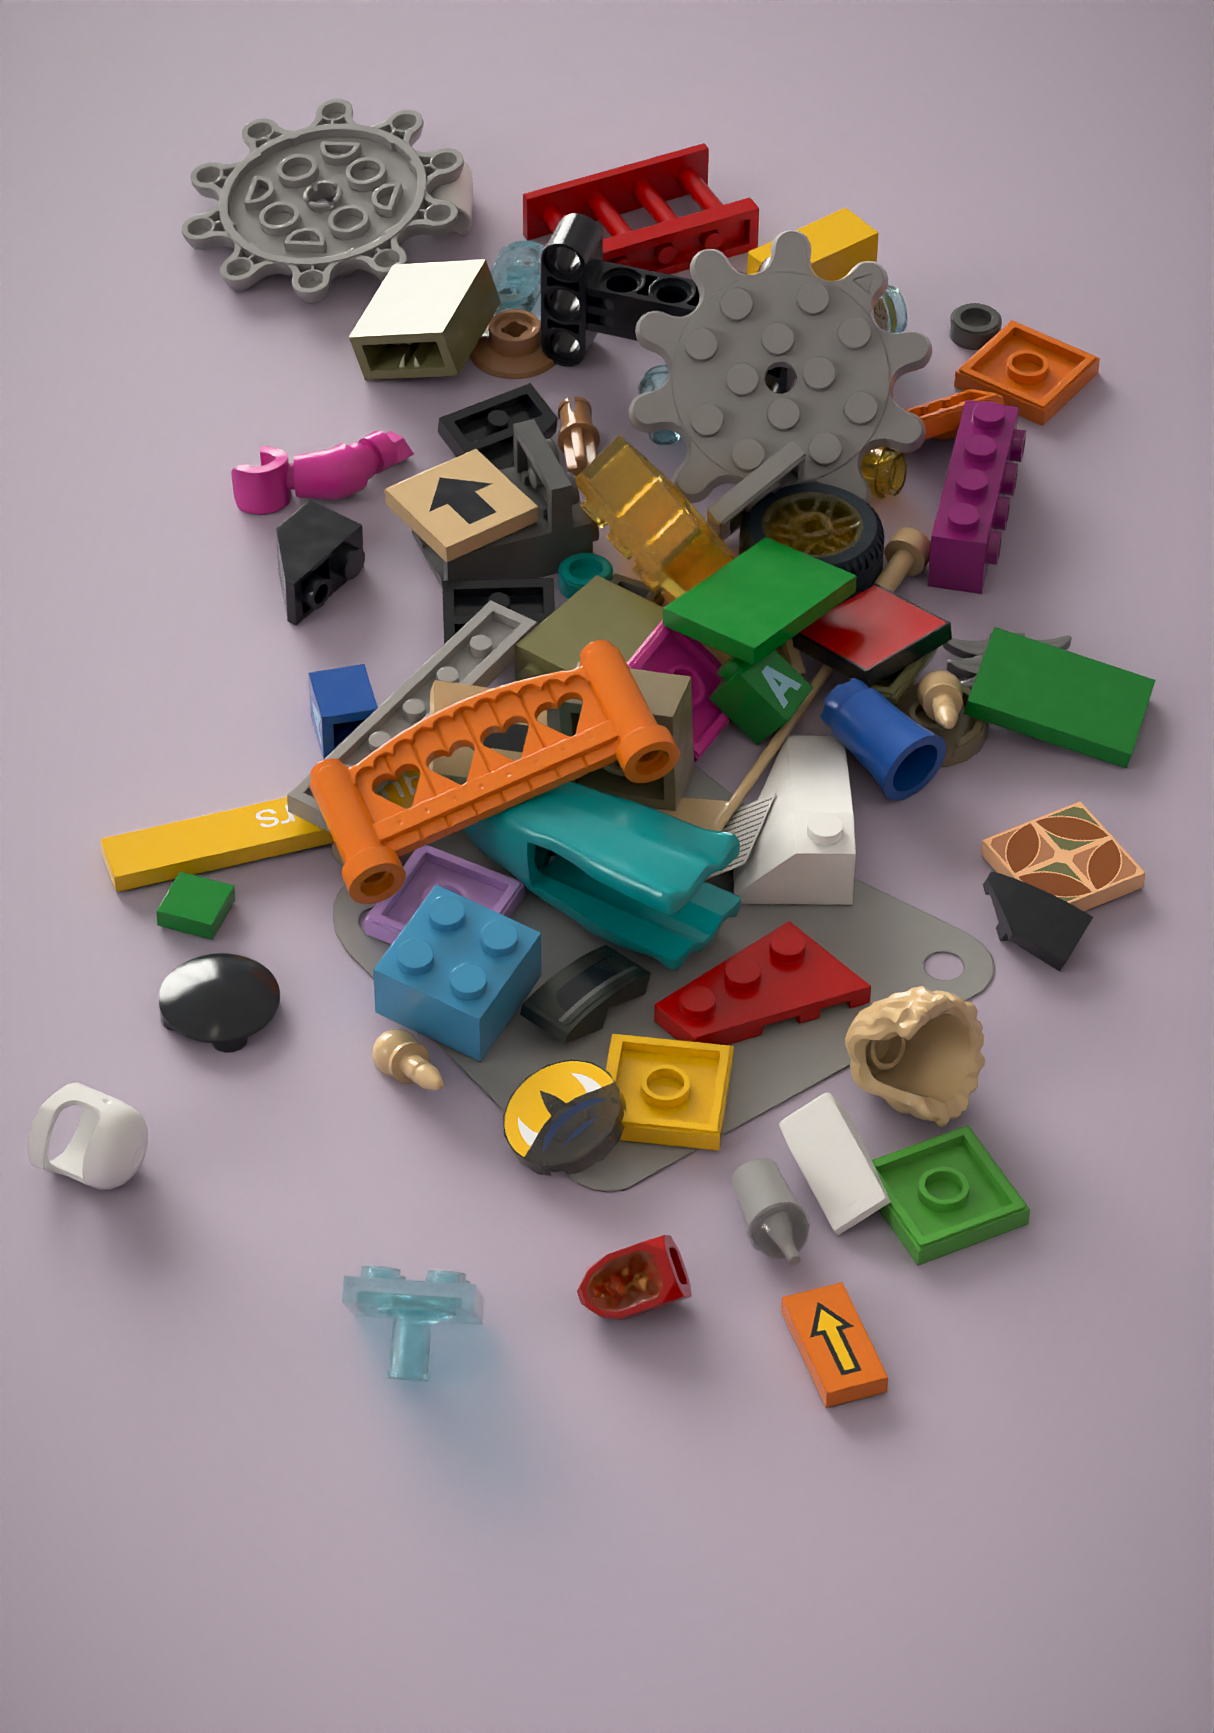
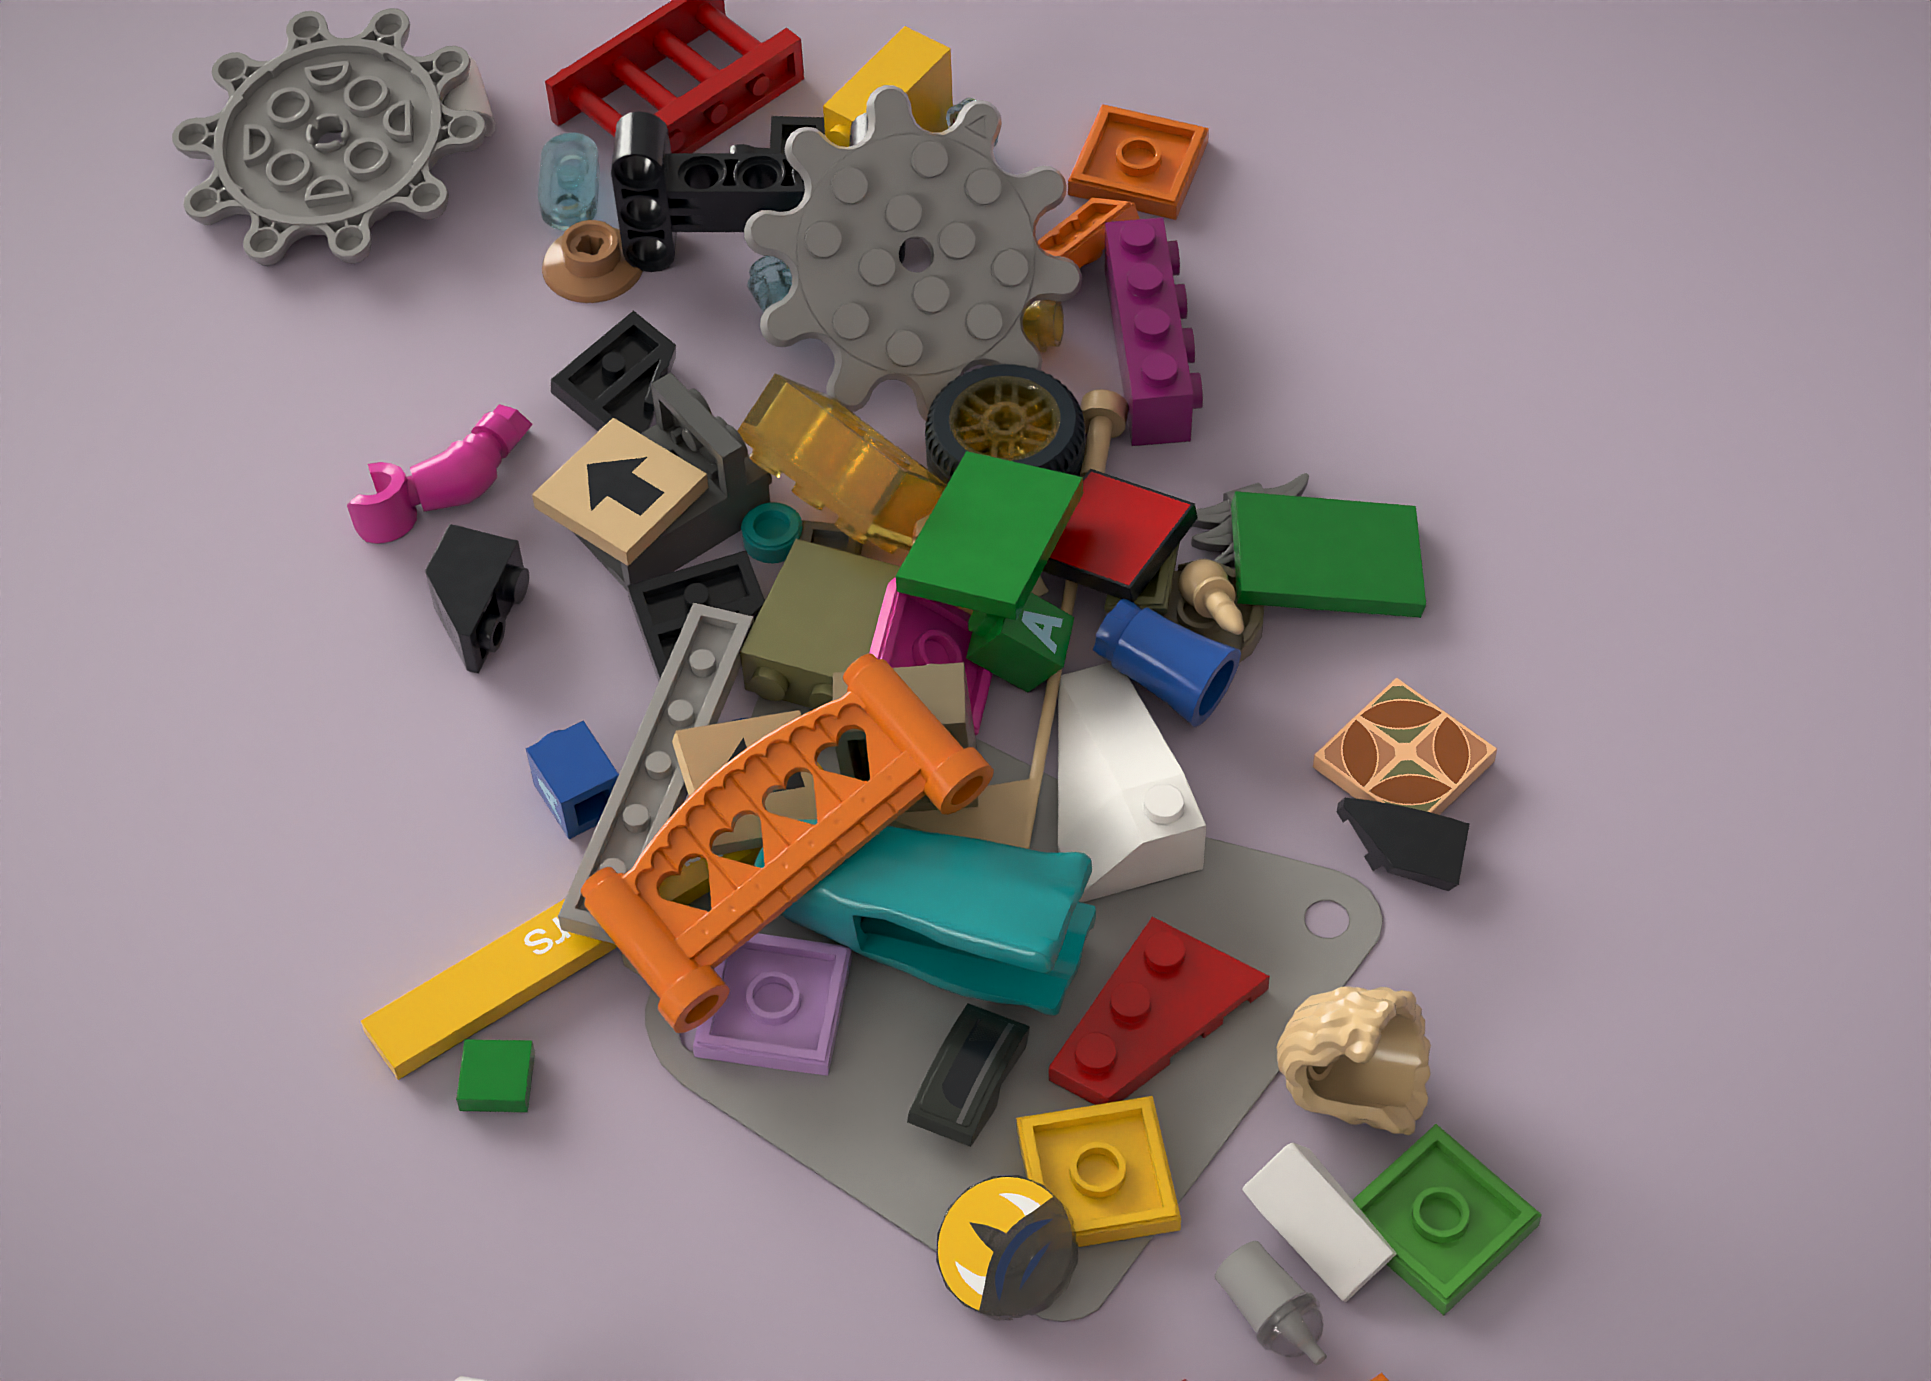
camera: 15 degrees left, 10 degrees up
(219, 1000) = (565, 1194): black dish -> none
(405, 1059) = (793, 1211): tan bar -> none
(425, 320) = (492, 260): olive brick -> none
(457, 972) = (827, 1096): dark azure brick -> none
(577, 435) = (705, 363): medium nougat axle -> none
(746, 826) = (1060, 813): white sticker -> none
(776, 472) = (934, 392): light grey tile -> none
(974, 325) = (1065, 119): dark grey tile -> none

